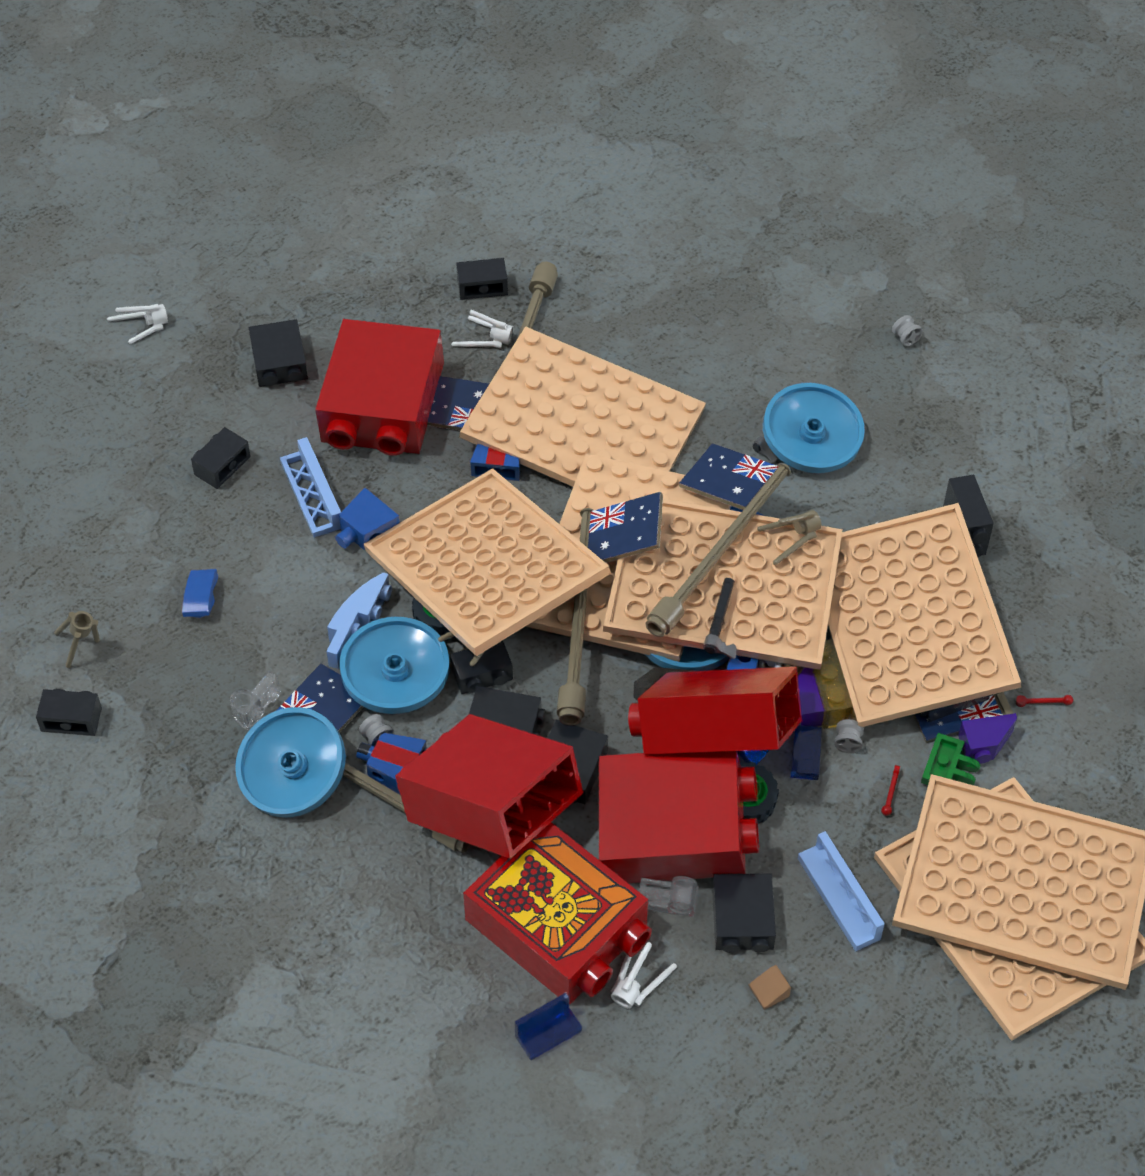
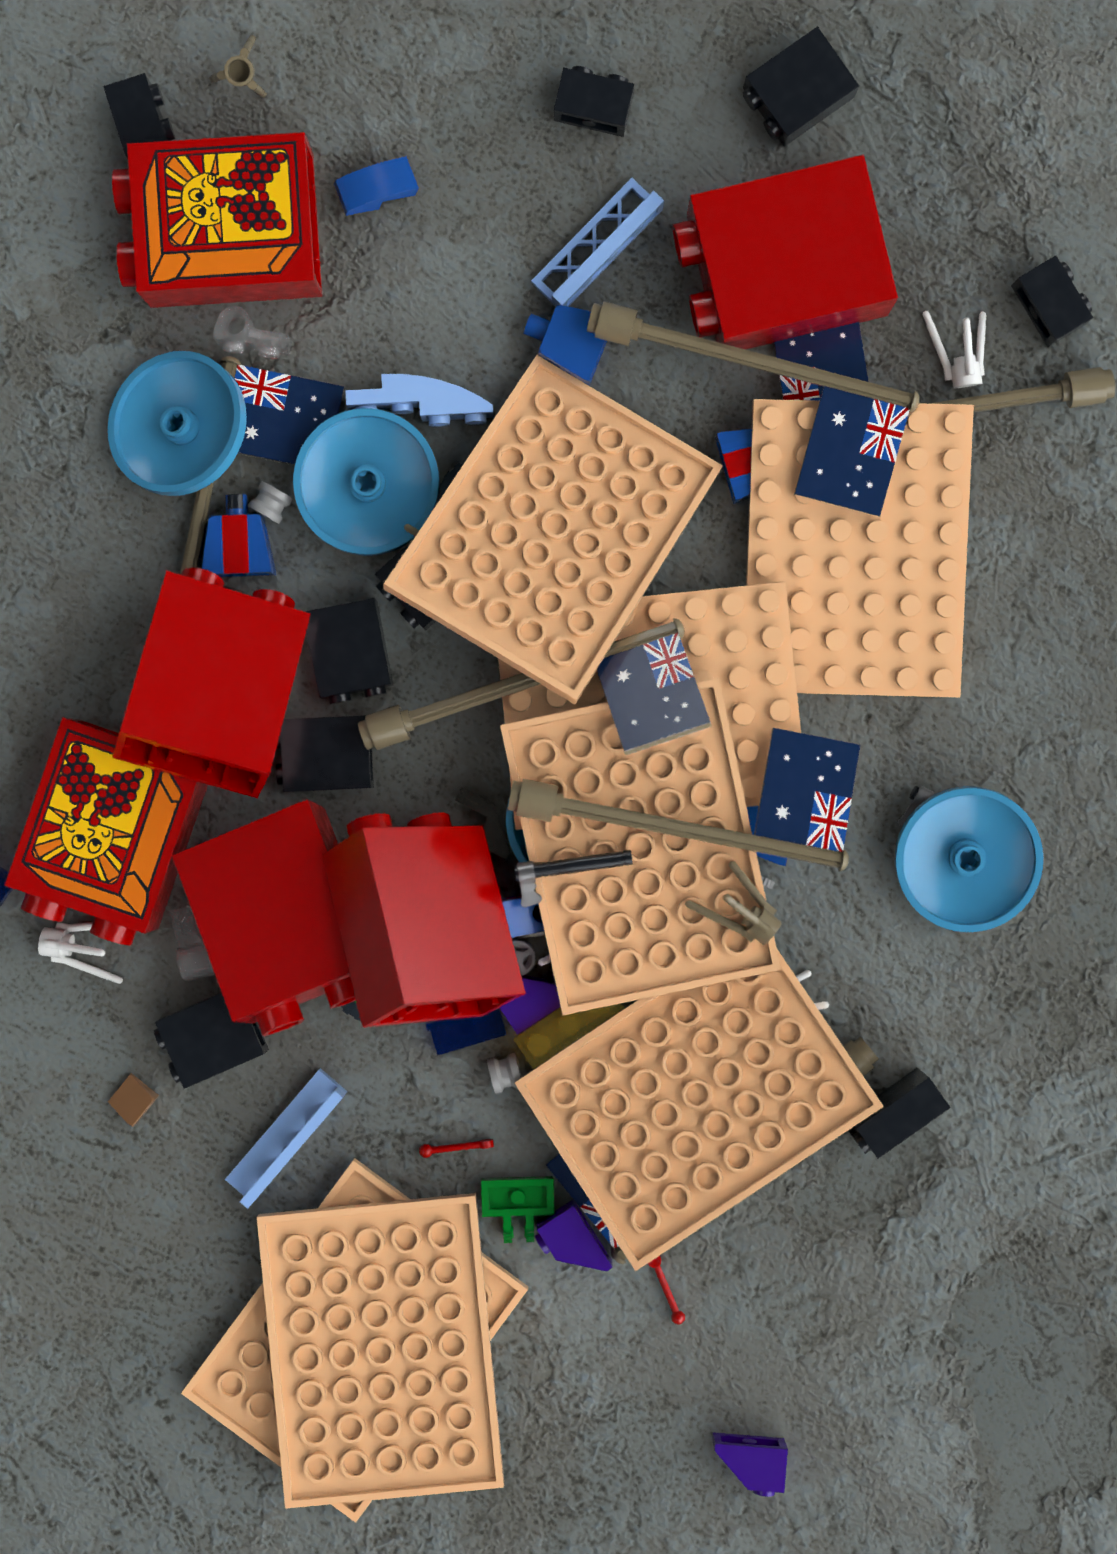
camera: 65 degrees right, 35 degrees up
(170, 680) = (220, 220): none -> brick
(502, 381) = (853, 428): none -> flag

